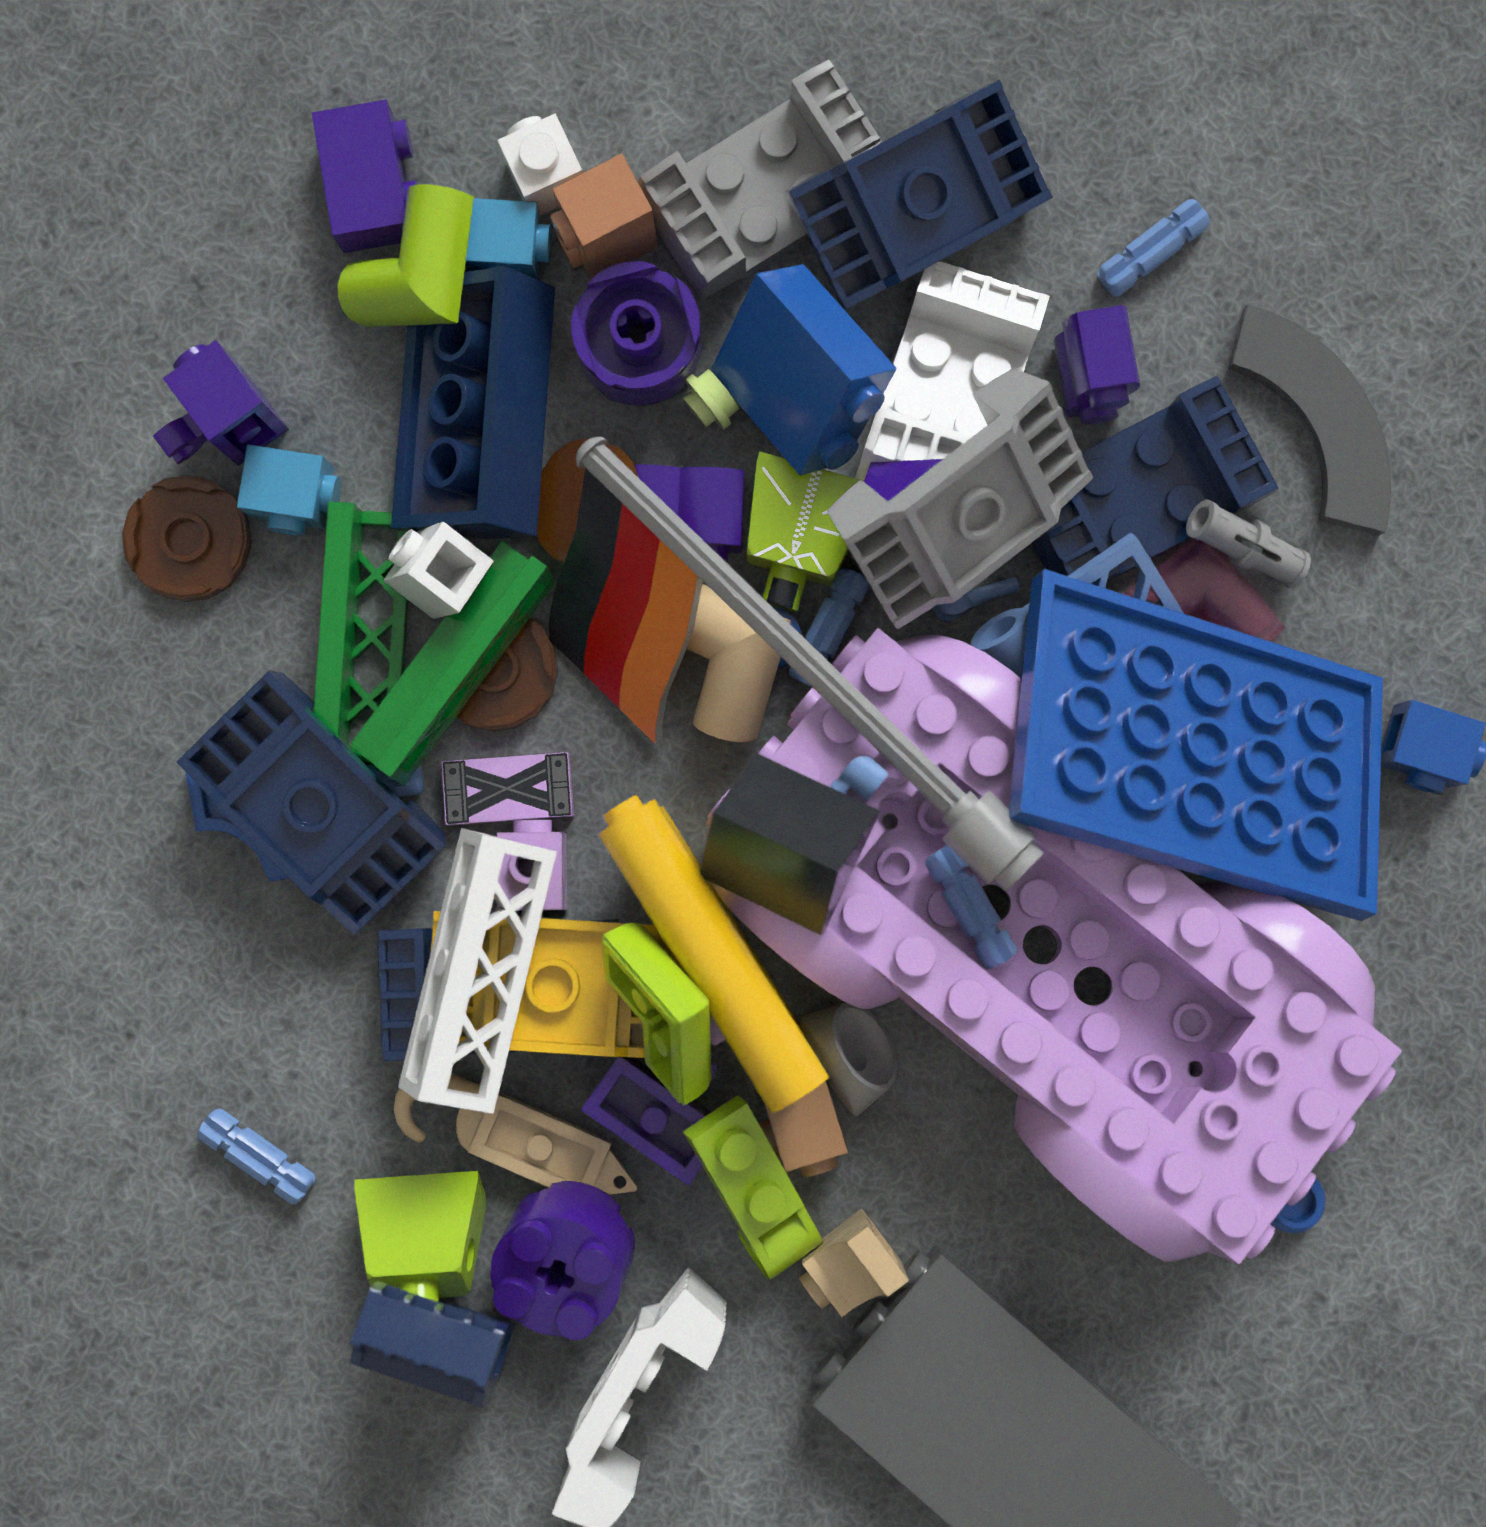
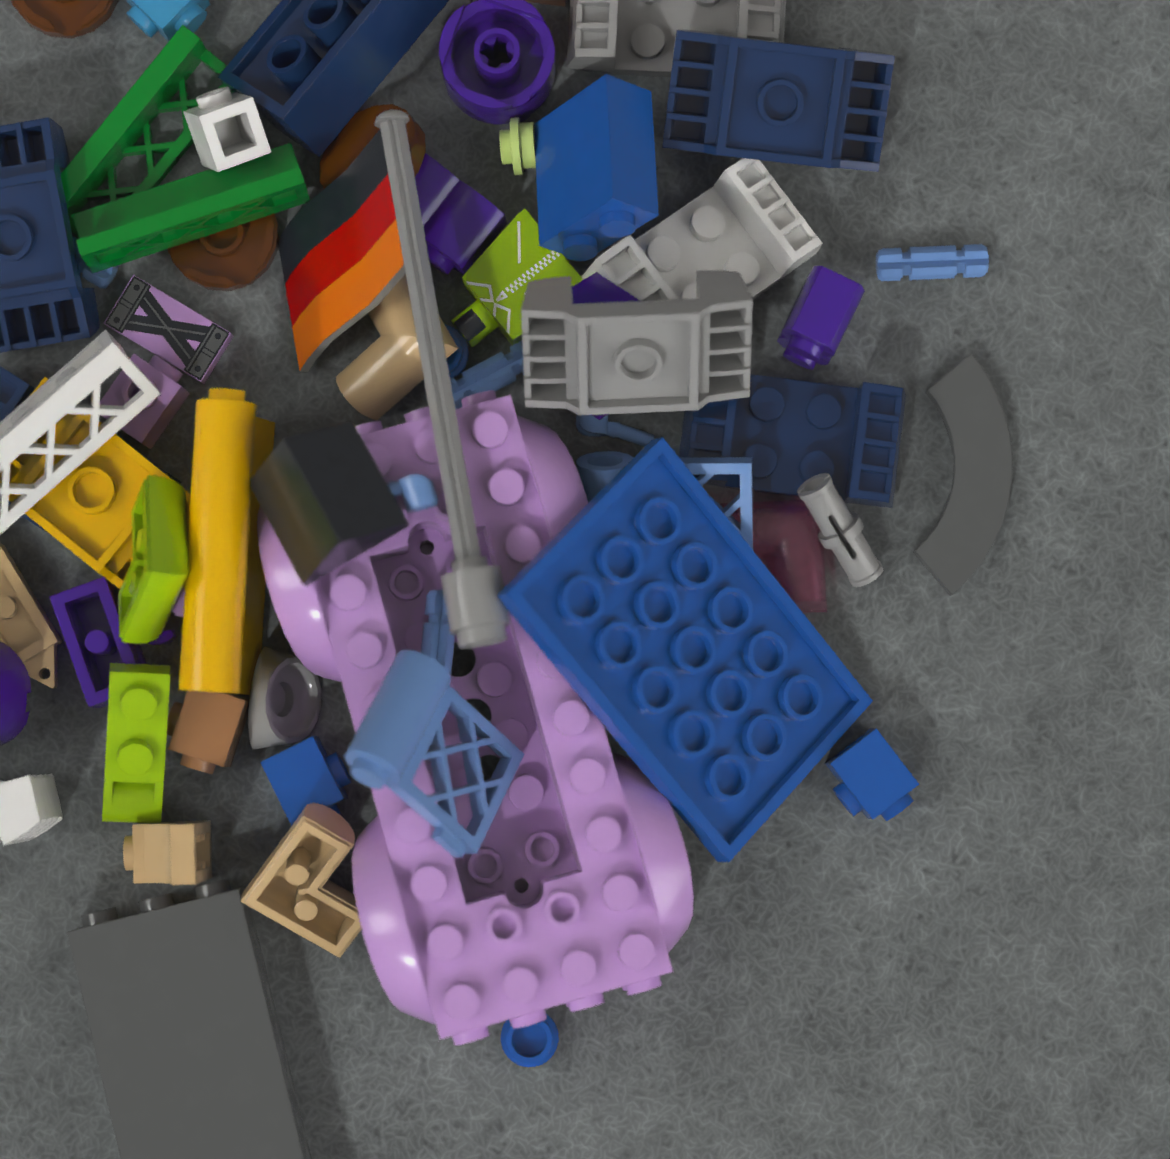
camera: 30 degrees right, 0 degrees up
(930, 1111) = (307, 776): none -> blue brick
(990, 1211) = (295, 883): none -> tan brick
(1011, 1004) = (396, 739): none -> medium blue piece

